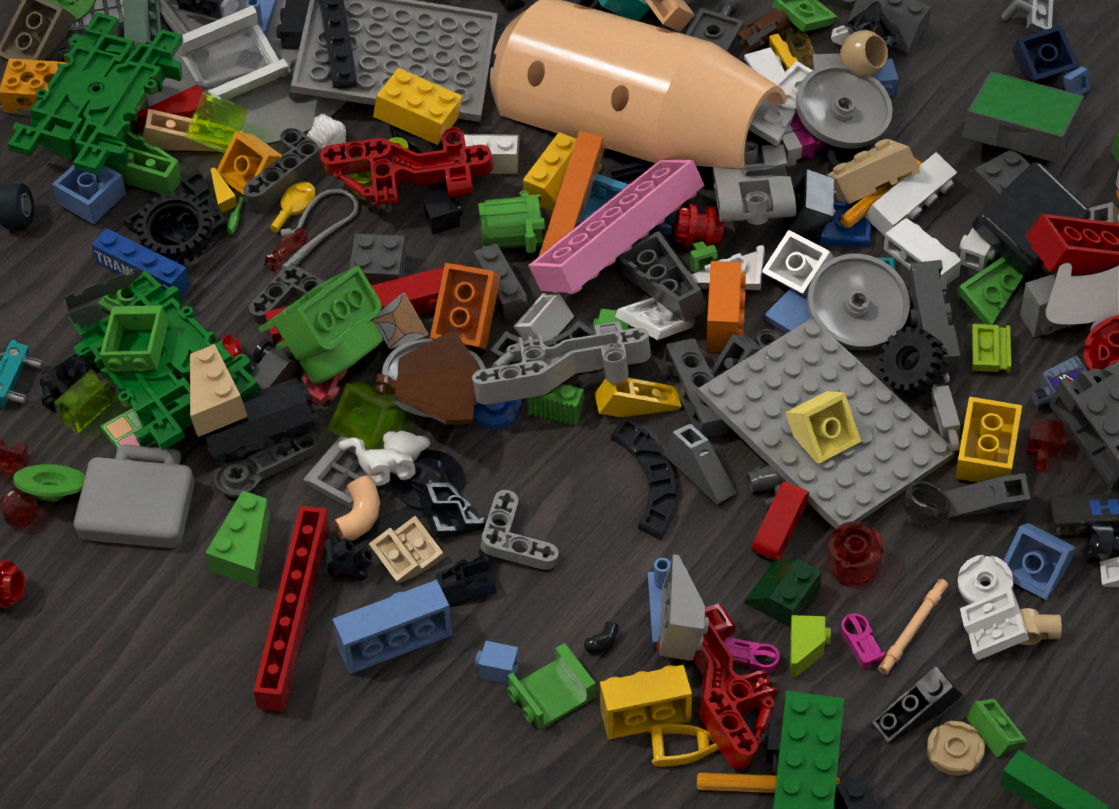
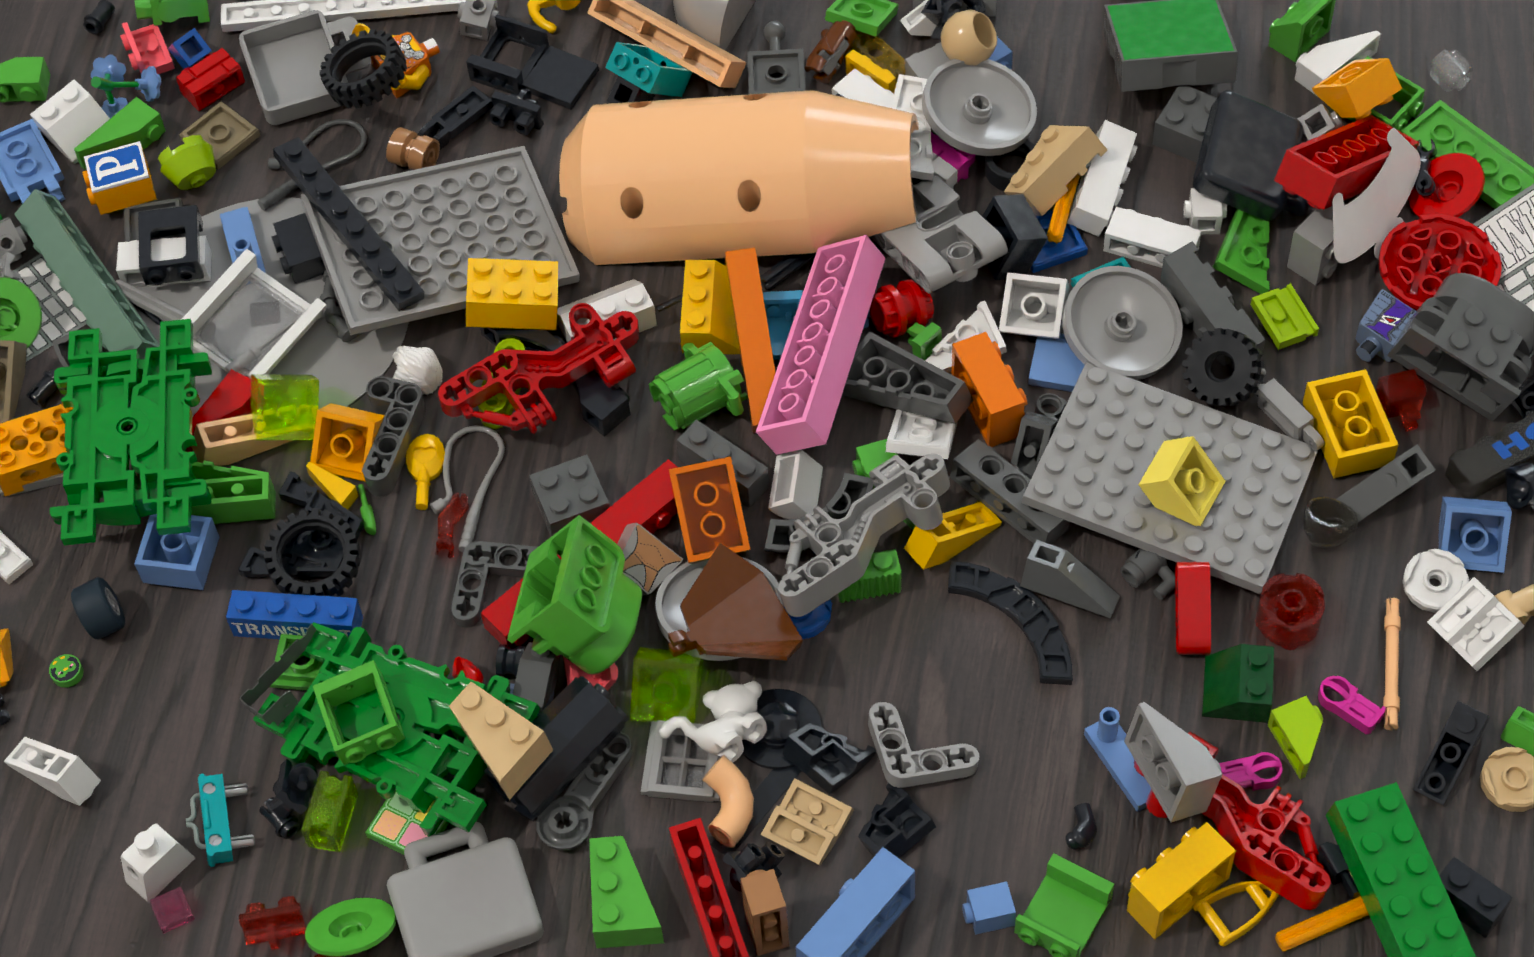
camera: 25 degrees left, 5 degrees up
(328, 587) = (765, 911): none -> medium nougat brick

